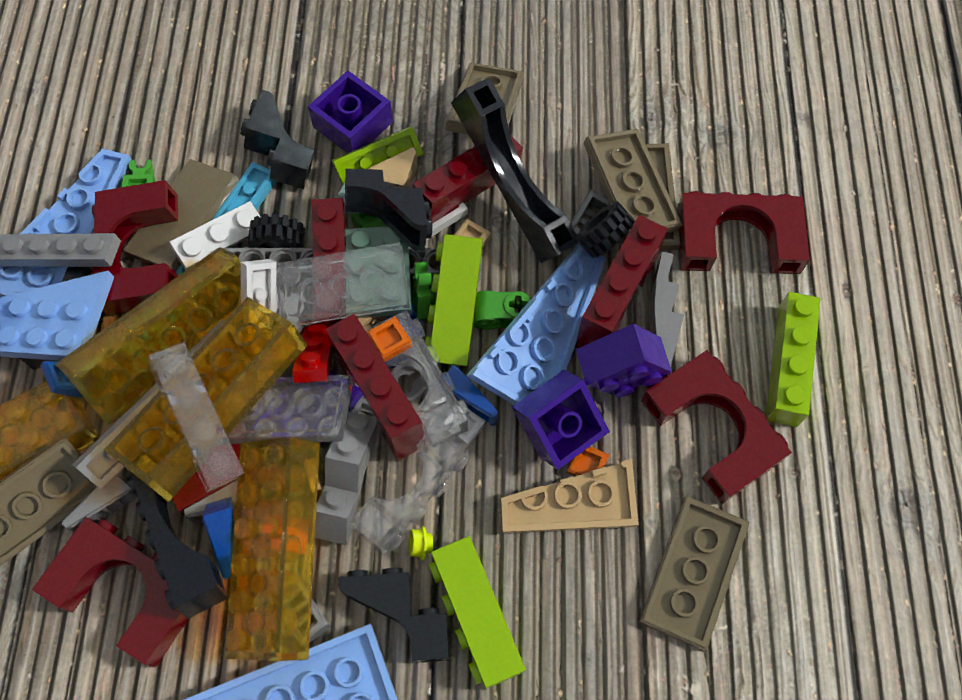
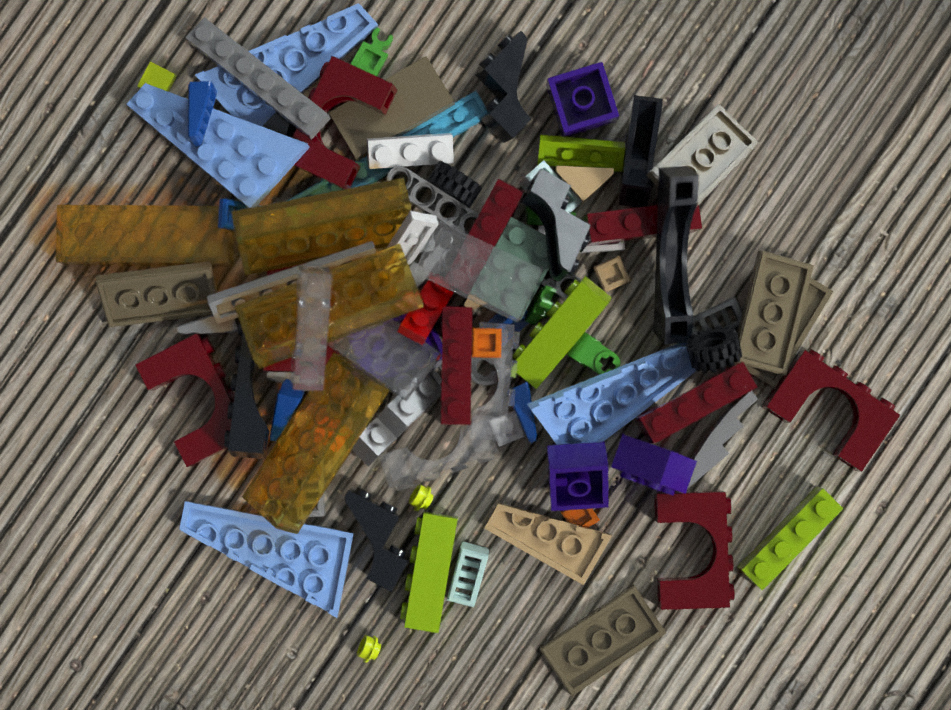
camera: 35 degrees right, 20 degrees up
(425, 118) = (640, 151): none -> black arch
(521, 562) = (476, 552): none -> light aqua slope

